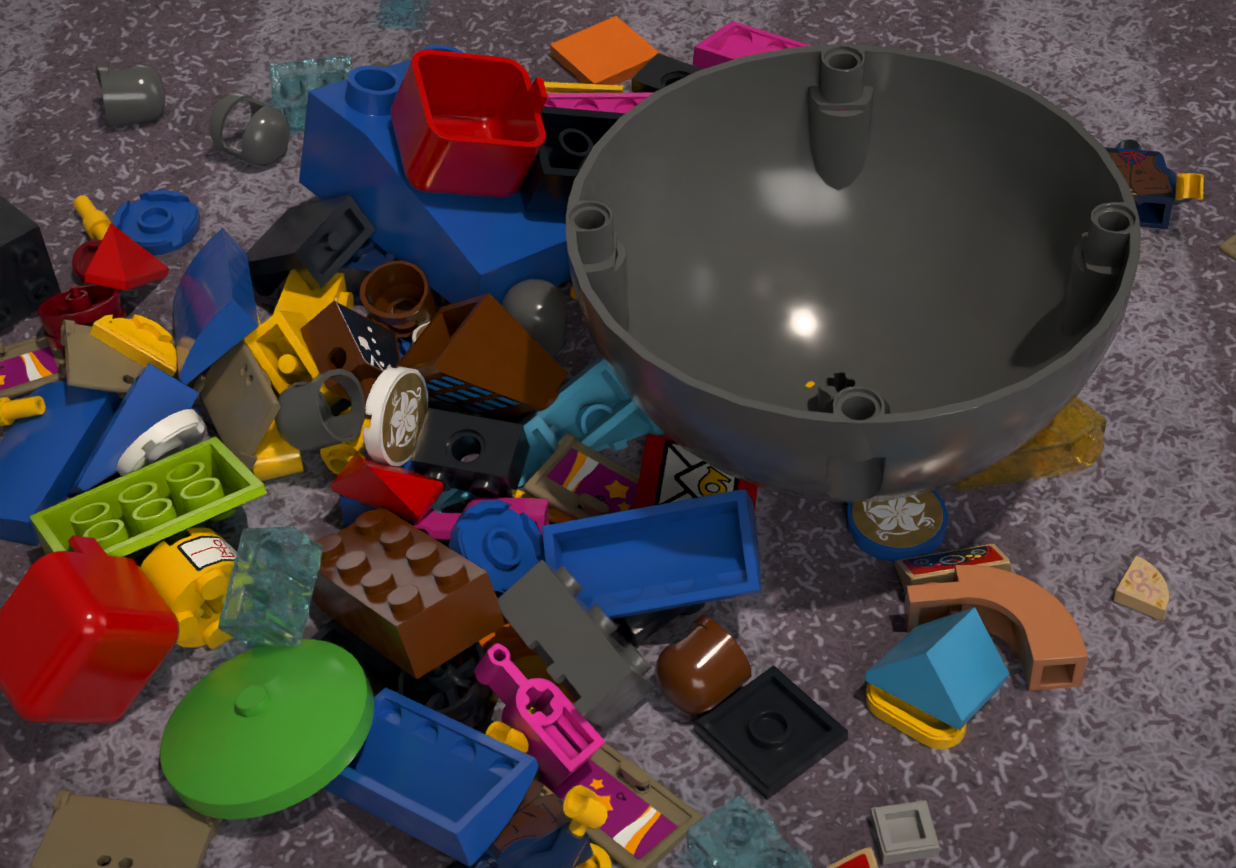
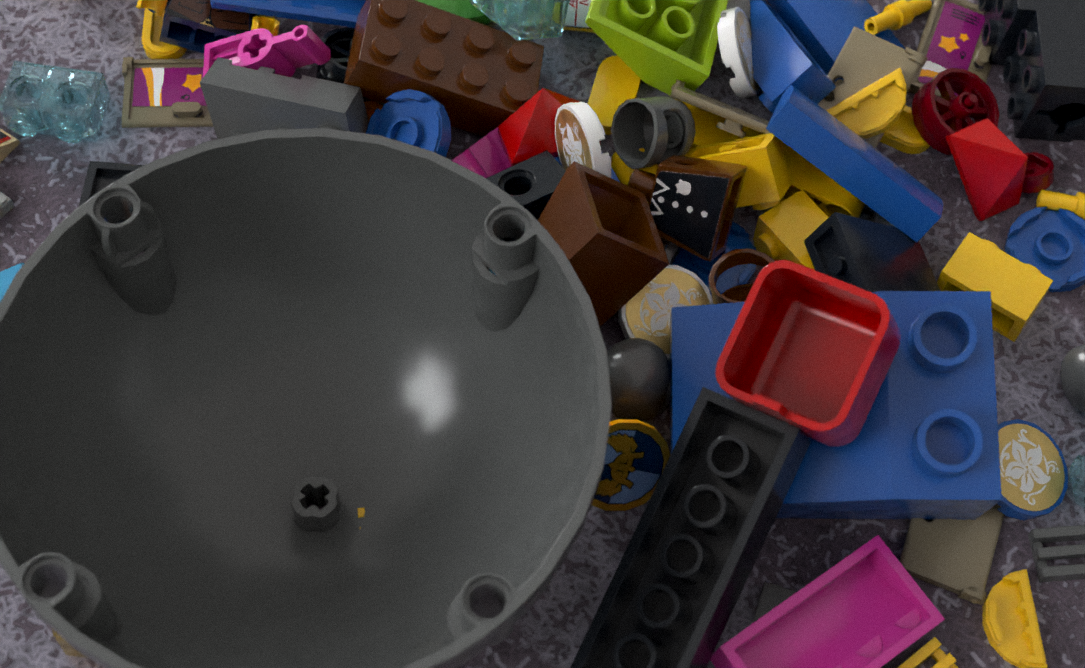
camera: 130 degrees right, 15 degrees up
(231, 204) = (1014, 285): none -> yellow brick
(299, 509) = (611, 88): none -> yellow tile

